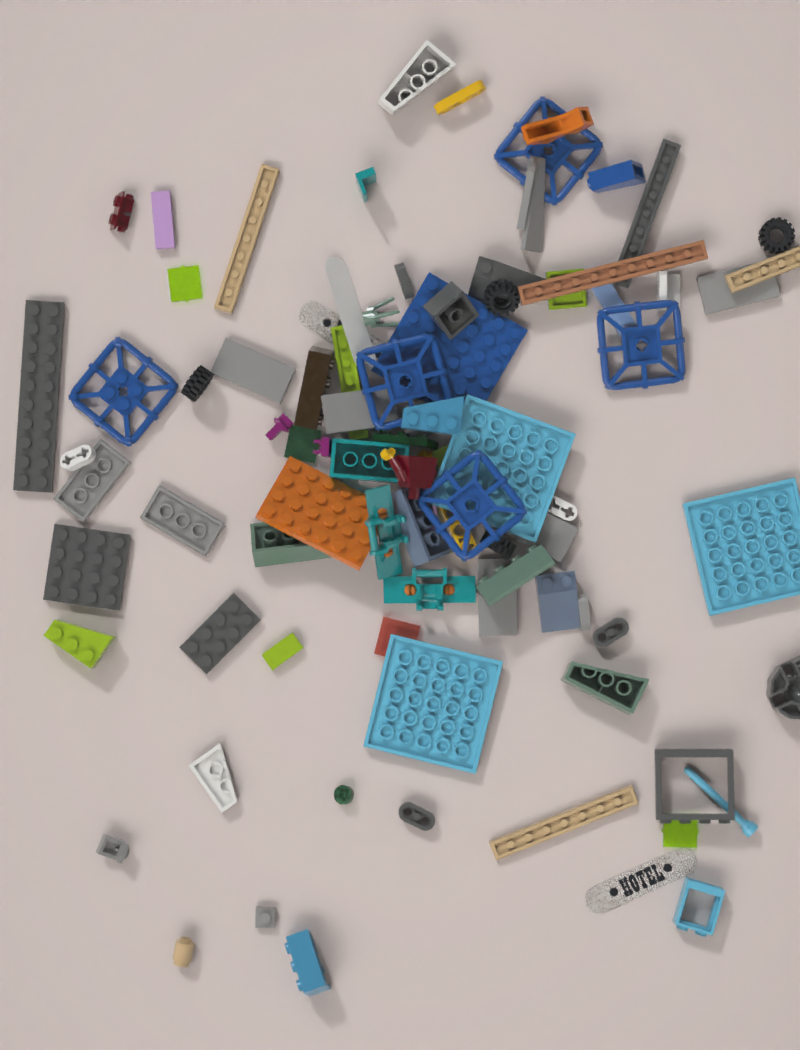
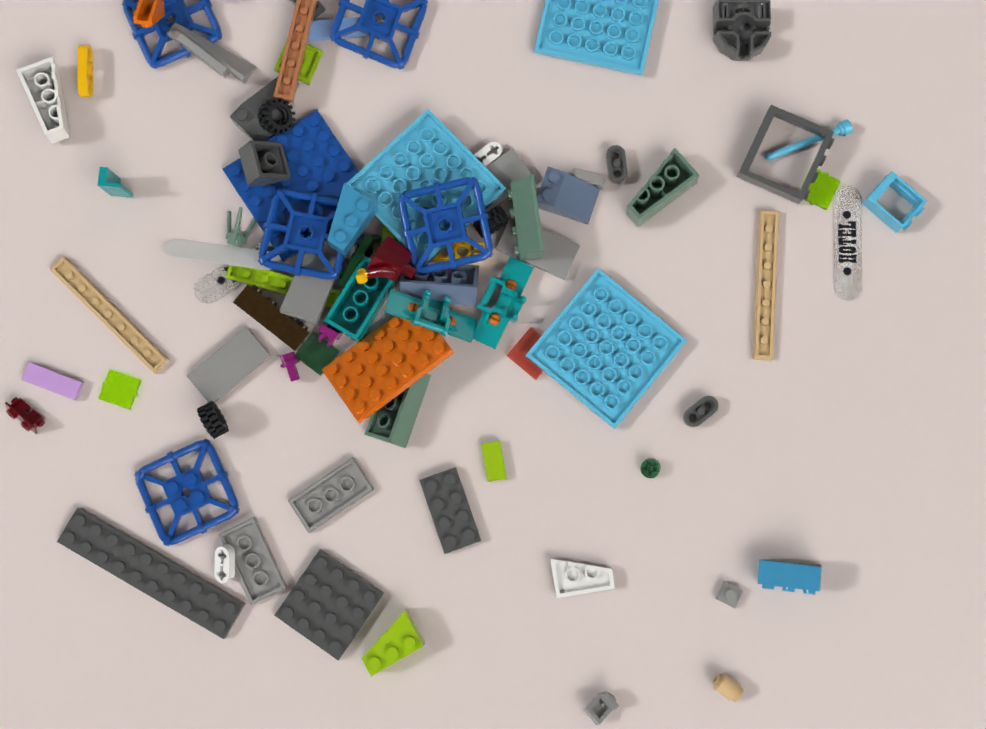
camera: 65 degrees left, 5 degrees down
(404, 281) = (218, 194): dark grey beam -> none

